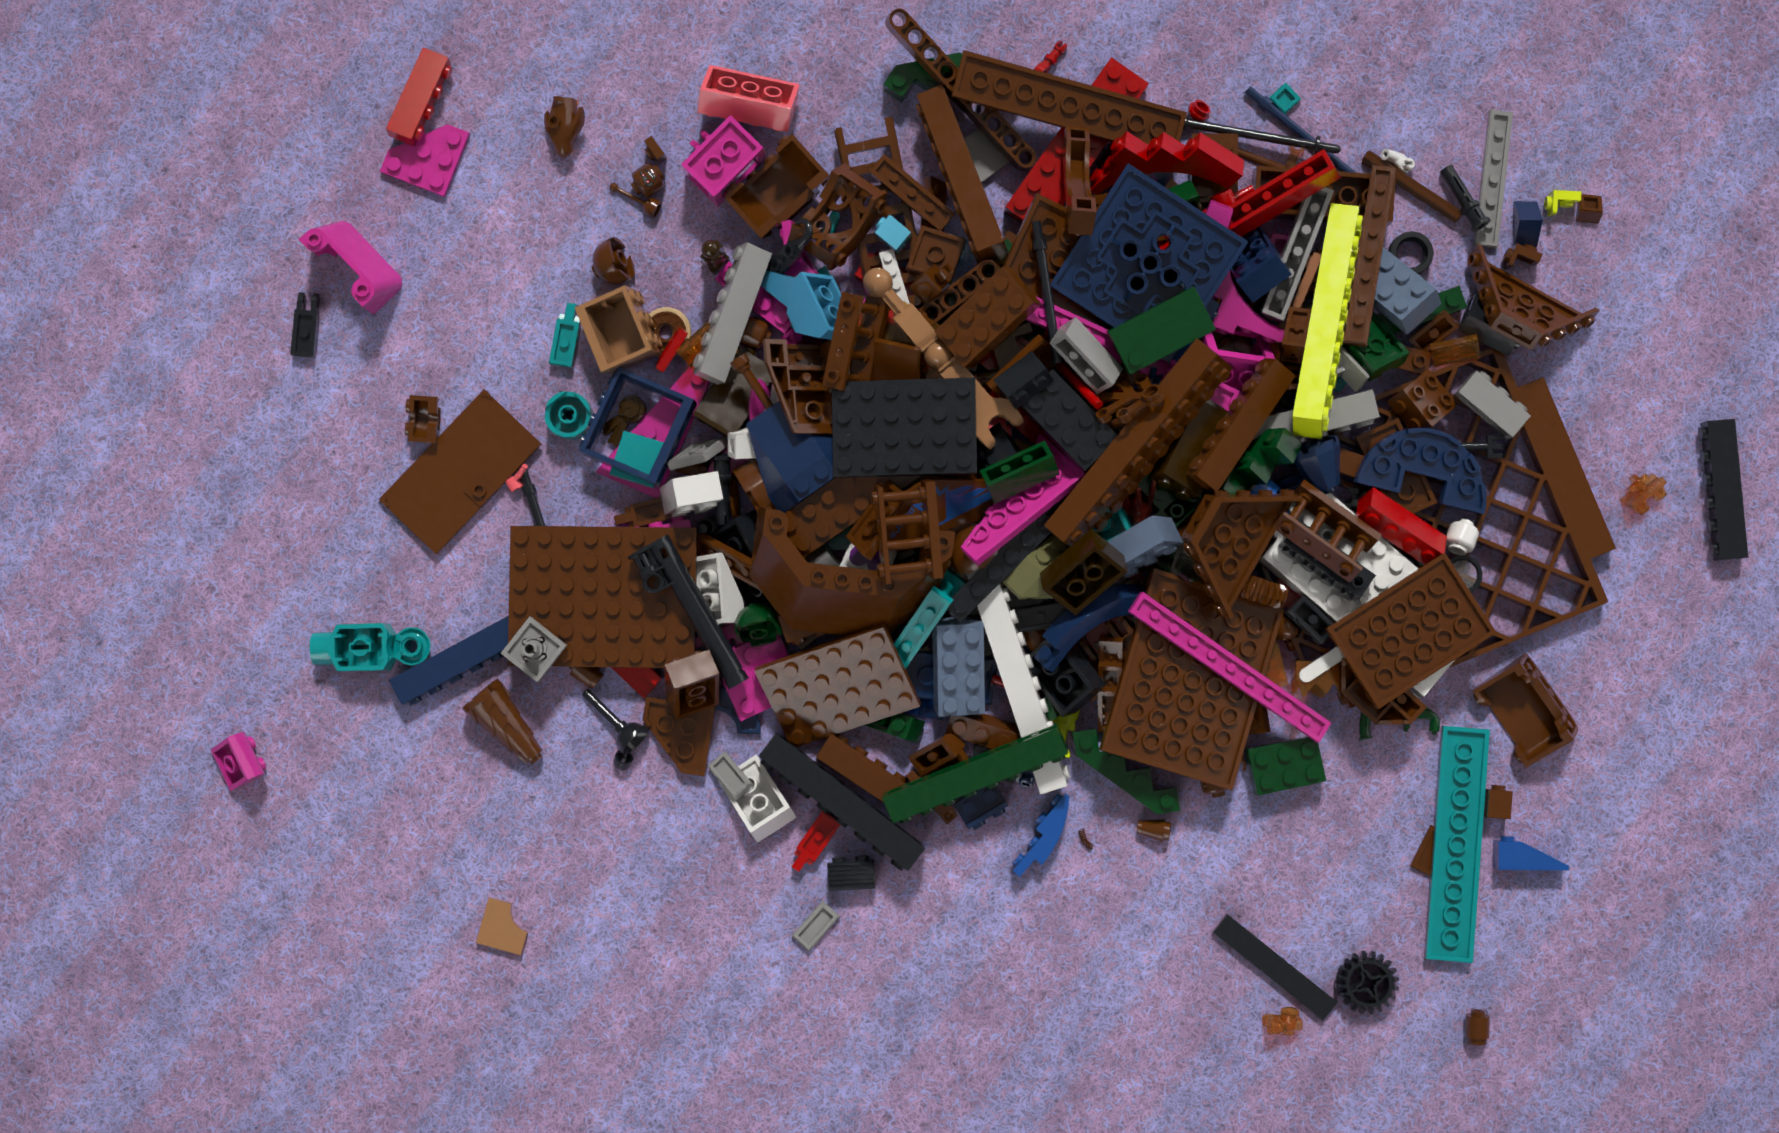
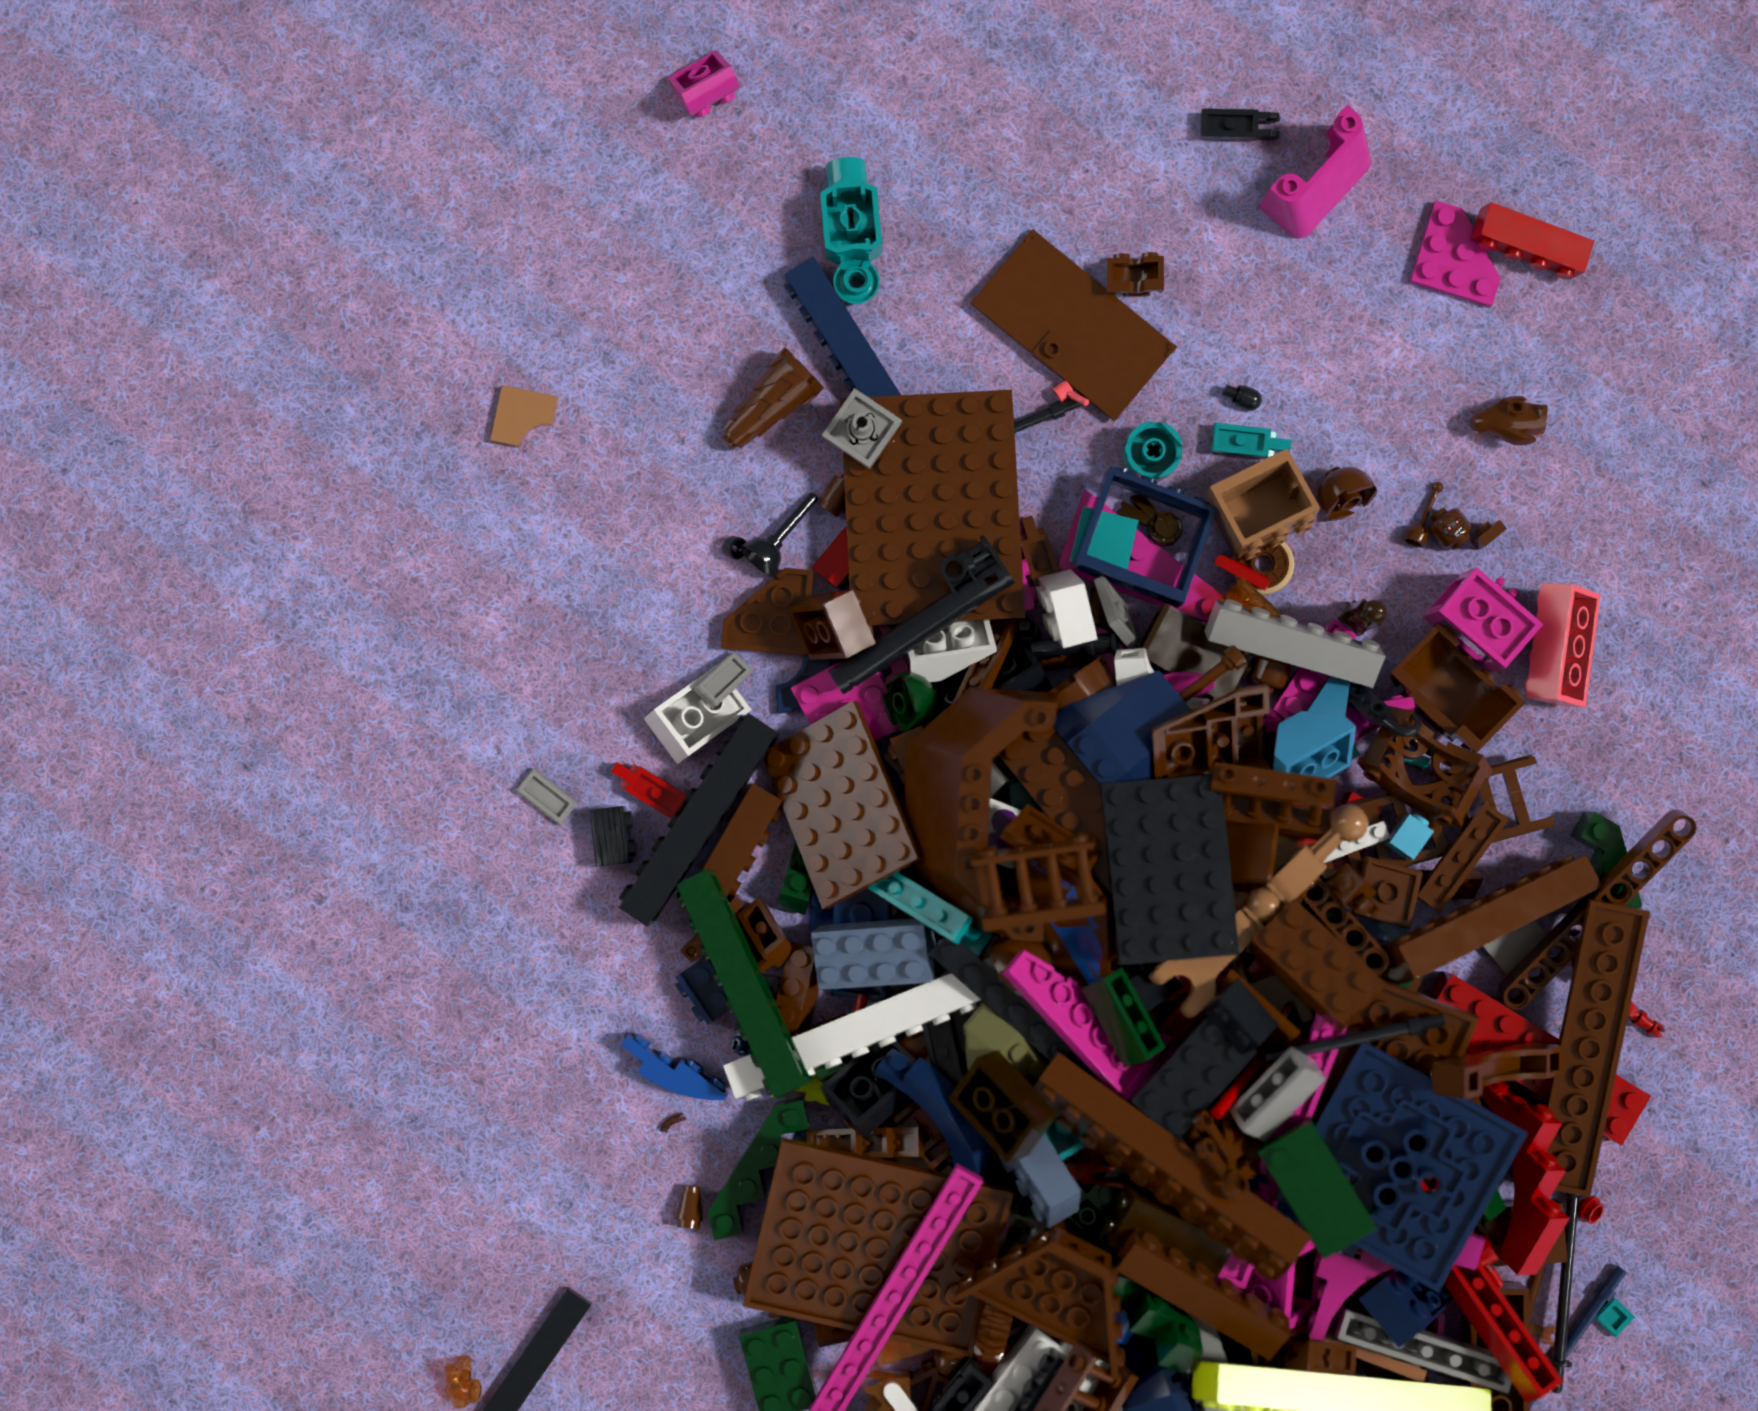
camera: 80 degrees right, 0 degrees up
(529, 338) = (1243, 397): none -> black cylinder

